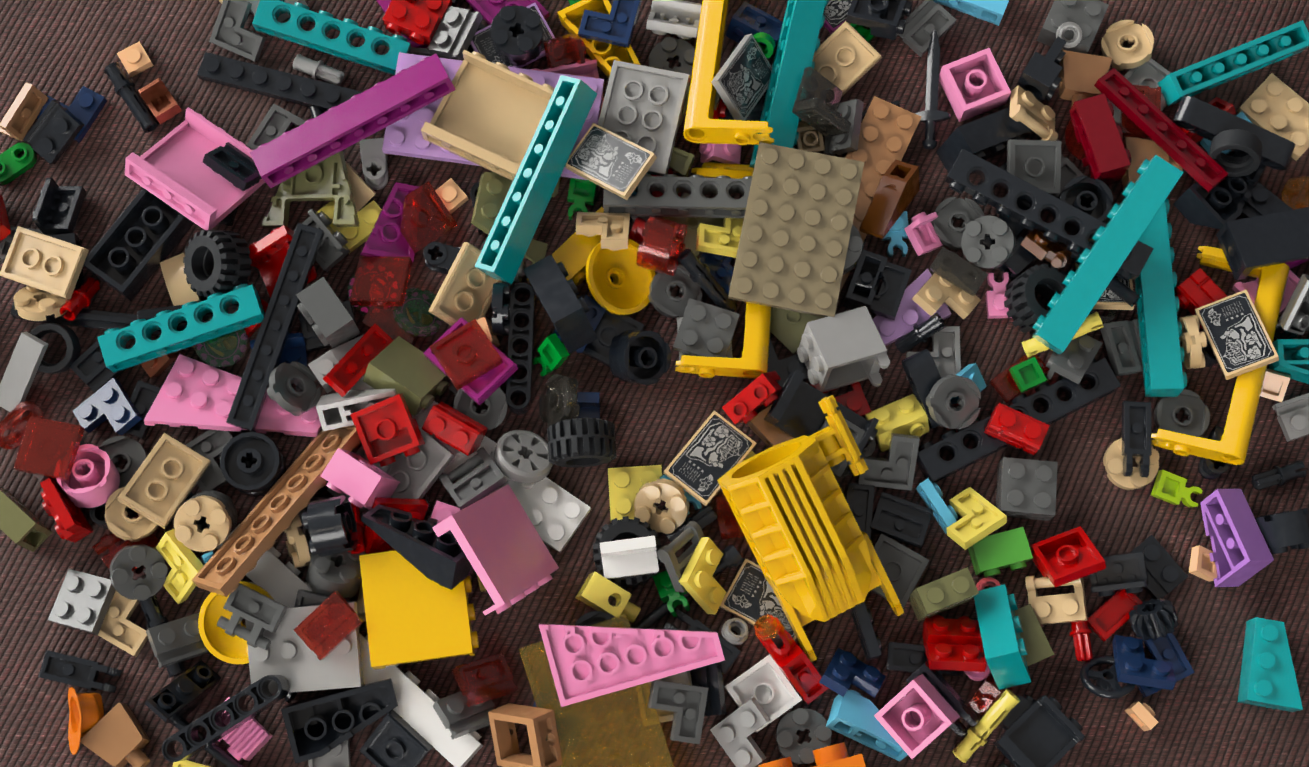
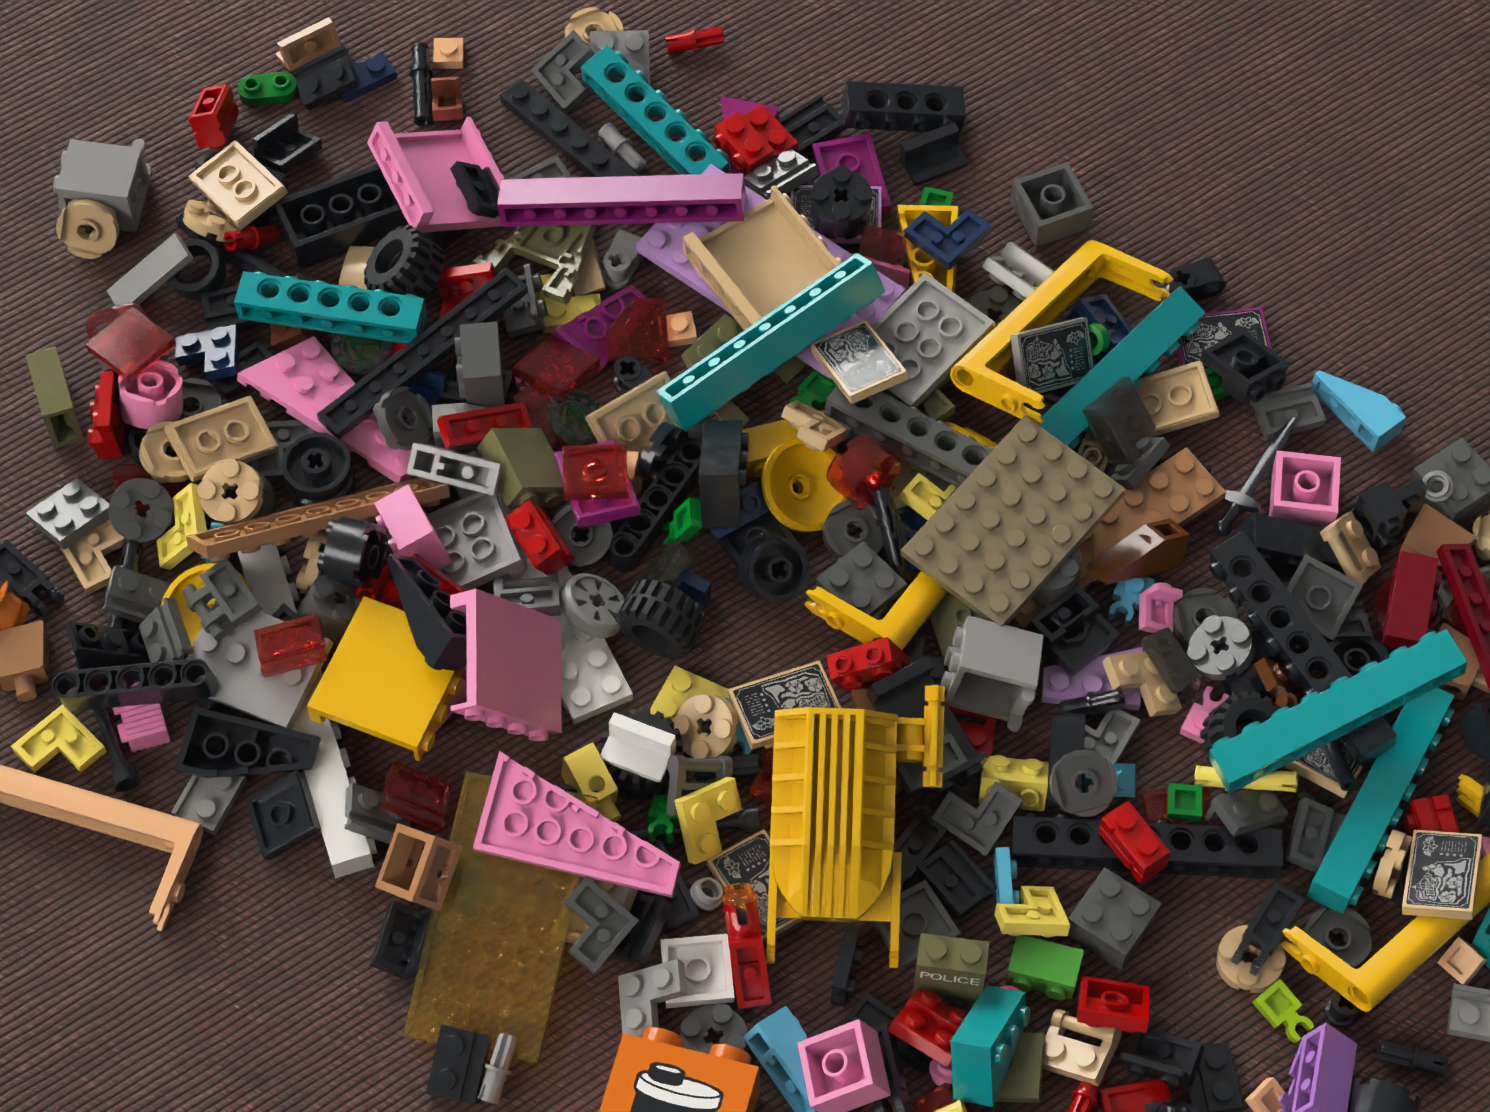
camera: 30 degrees right, 15 degrees down
(222, 663) = (165, 633): none -> dark grey plate
(387, 430) = (469, 501): red plate -> none
(720, 152) = (990, 421): bright pink bracket -> none
(847, 670) = (801, 991): dark blue plate -> none

